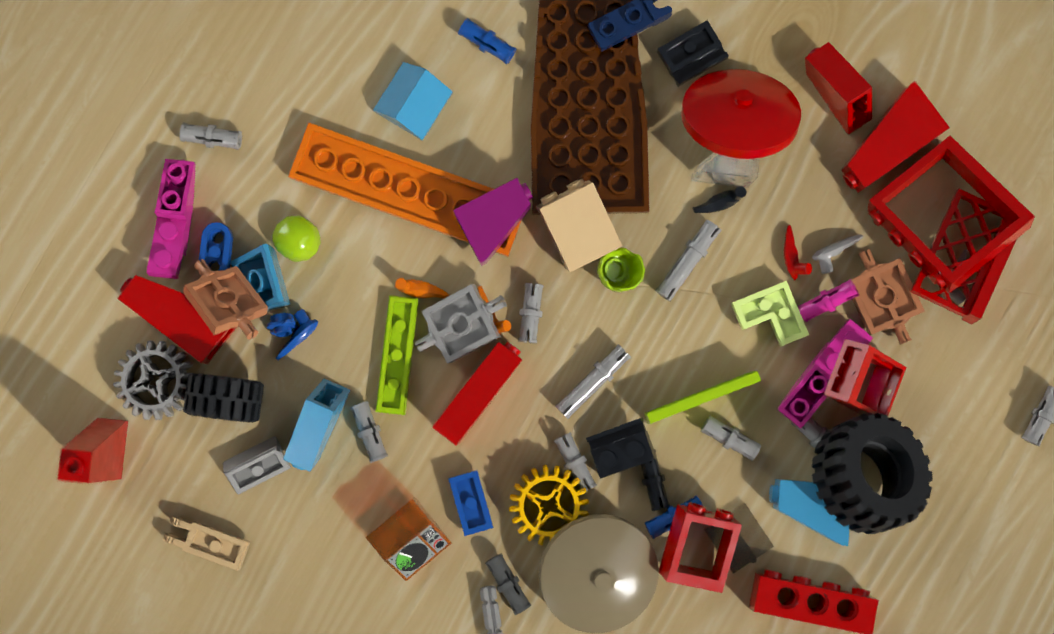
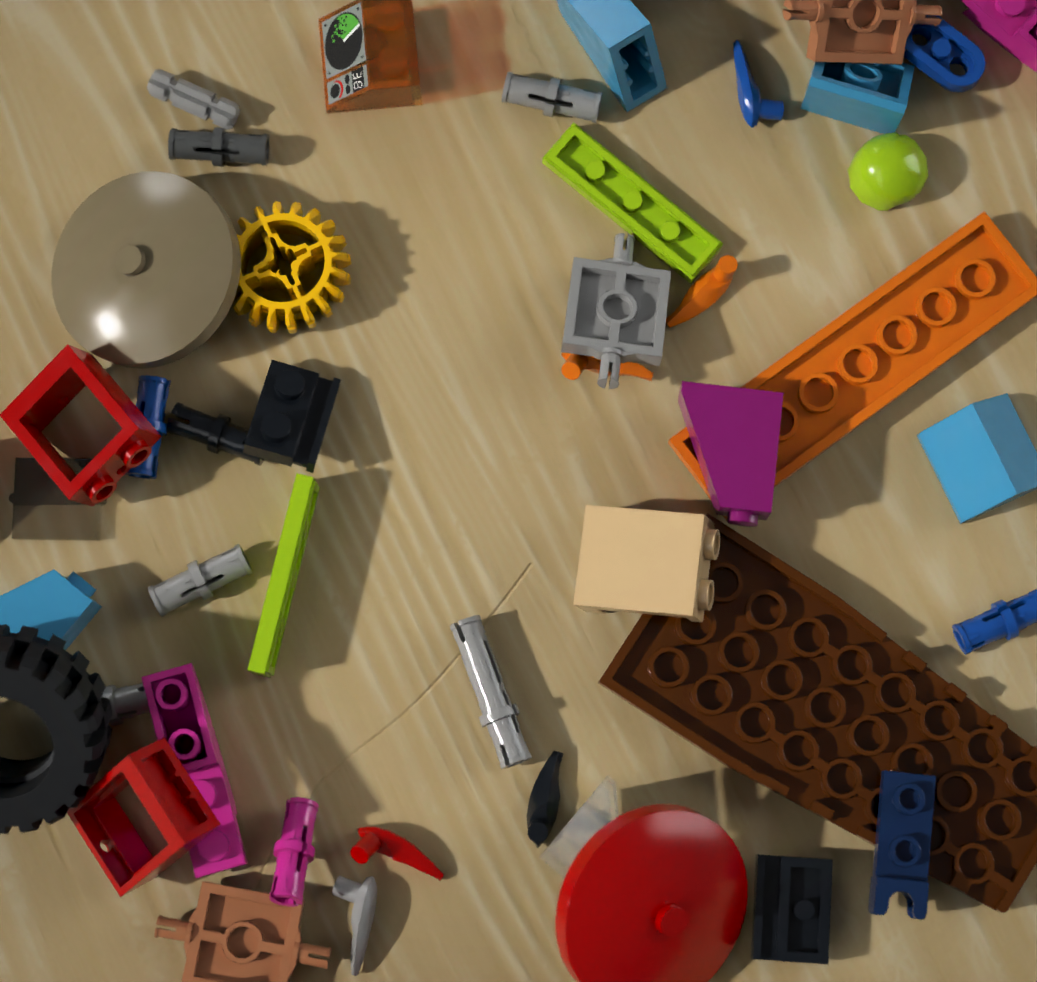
camera: 130 degrees right, 5 degrees down
(282, 325) = (778, 74): blue plate -> none
(471, 503) = (361, 167): blue plate -> none
(478, 393) = (502, 266): red slope -> none
(530, 313) = (566, 420): light grey pin -> none
(574, 461) = (318, 343): light grey pin -> none
(593, 381) = (414, 461): light grey pin -> none
(621, 270) = (540, 581): lime hair -> none
(776, 306) = (341, 772): yellowish green plate -> none

